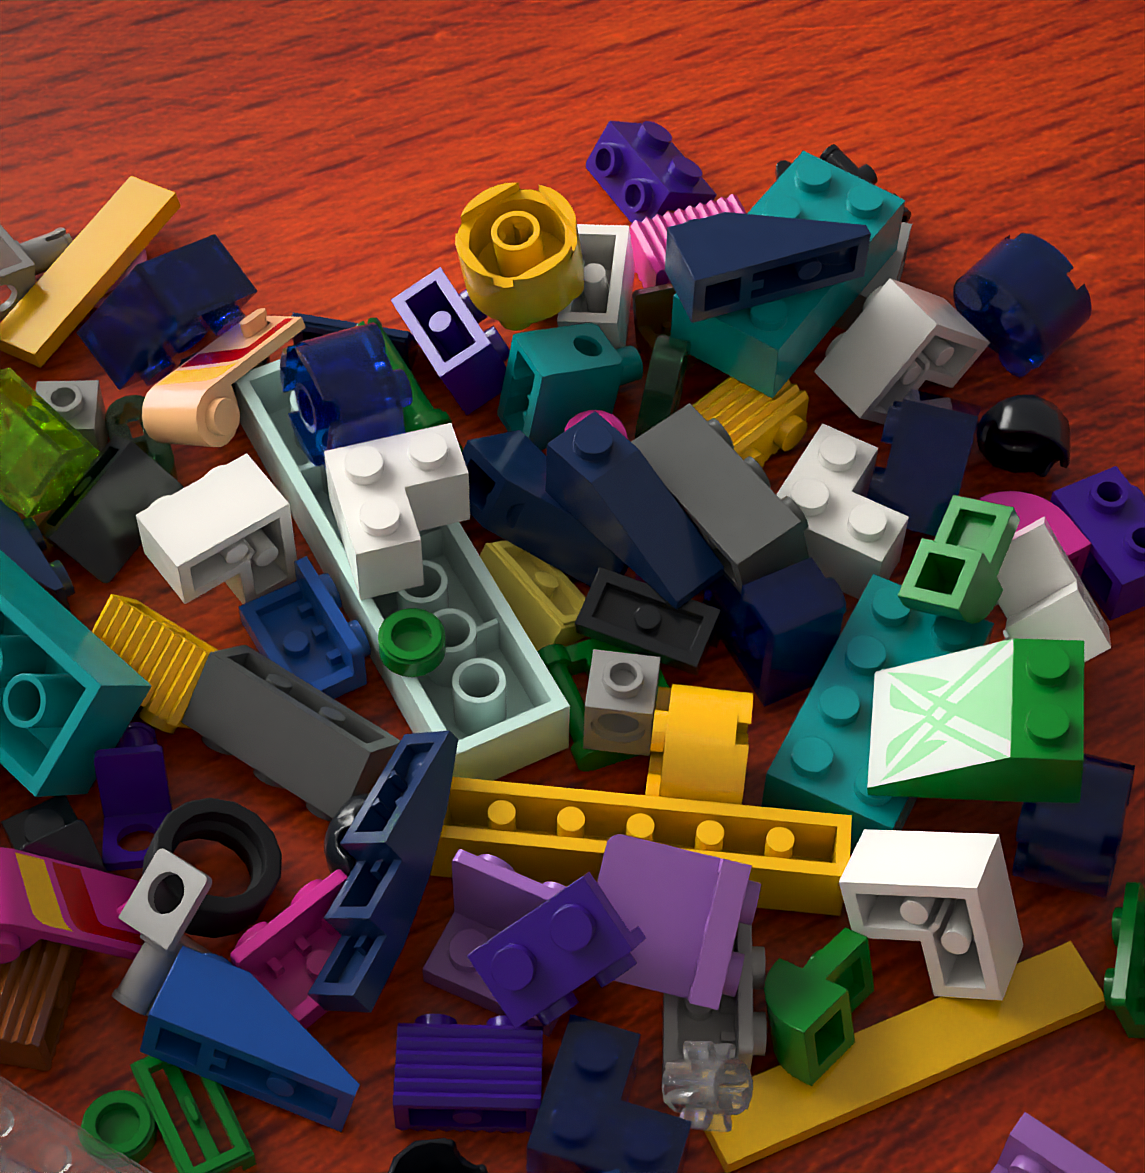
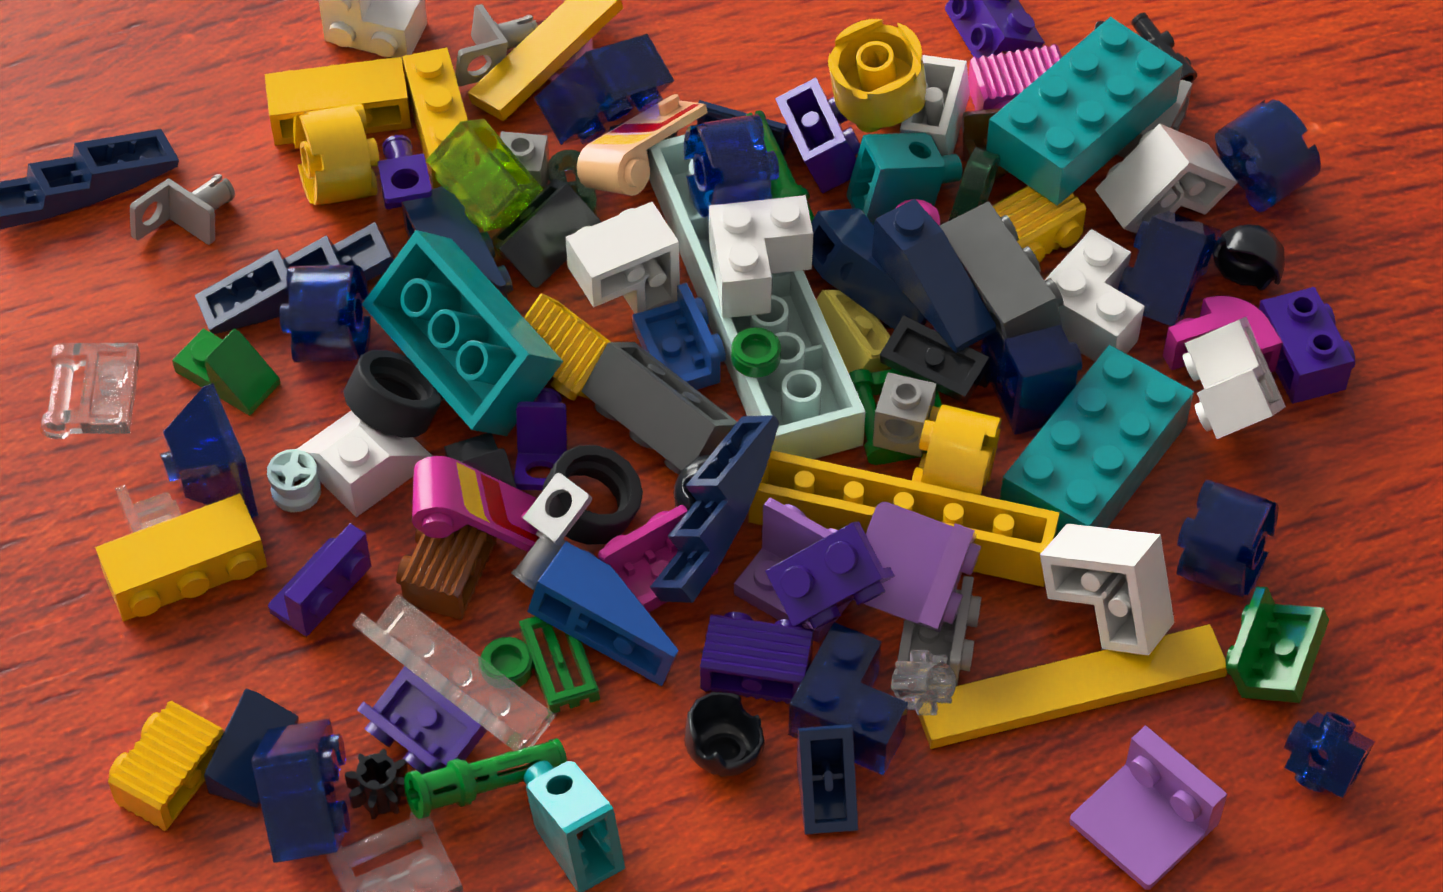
camera: 10 degrees right, 0 degrees up
(755, 259) = (1053, 98): dark blue slope -> none
(814, 1005) = (1012, 639): green brick -> none
(961, 566) = (1170, 346): green brick -> none
(982, 724) = (1165, 458): green slope -> none

